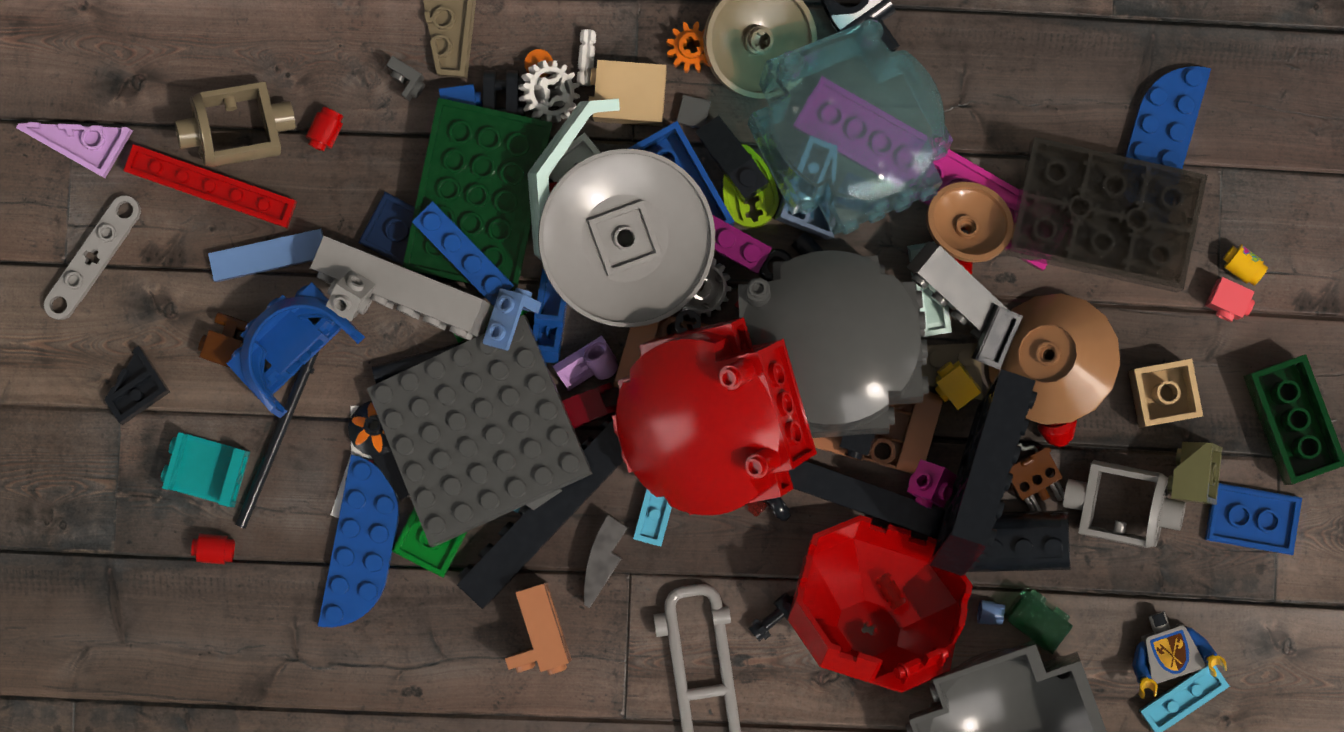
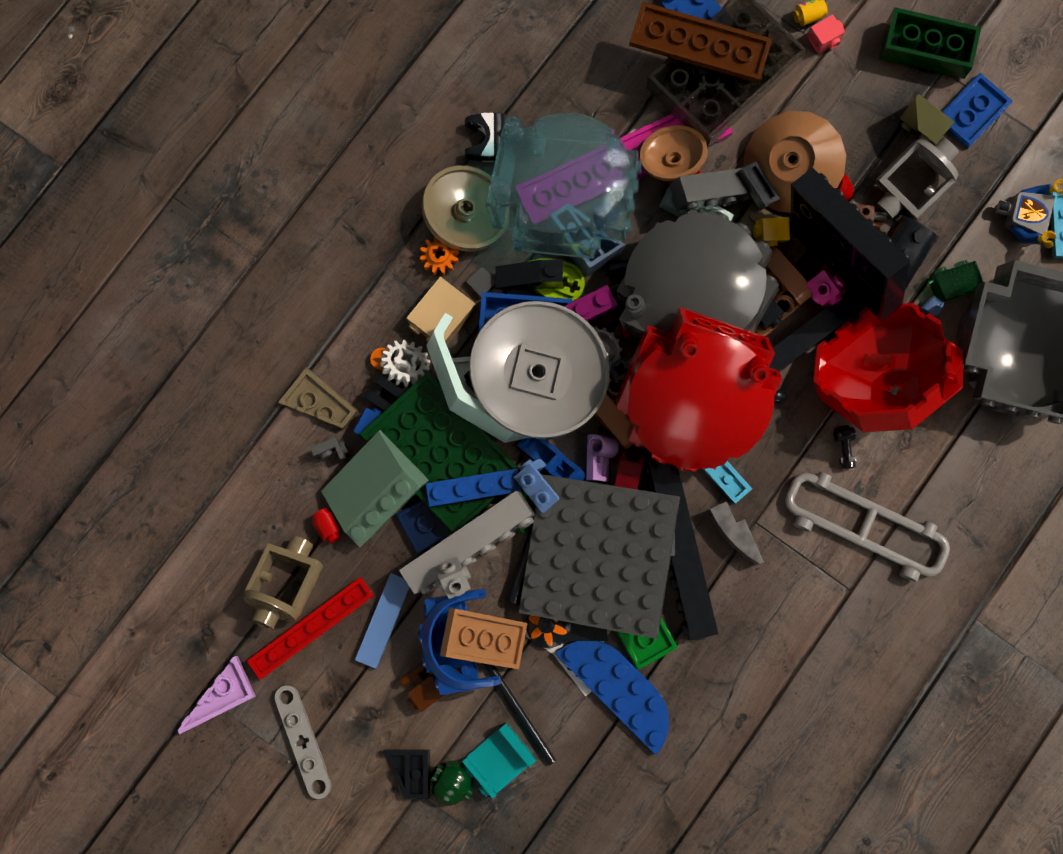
camera: 60 degrees left, 5 degrees down
(150, 436) = (451, 783): none -> dark green plant
(213, 548) = (556, 791): red brick -> none
(314, 370) = (483, 638): none -> medium nougat plate
(391, 149) = (372, 488): none -> sand green slope
(544, 632) = (770, 604): nougat brick -> none
(586, 56) = (398, 326): white axle -> none
(1109, 168) = (700, 42): none -> reddish brown plate
(1165, 393) = (861, 109): tan brick -> none

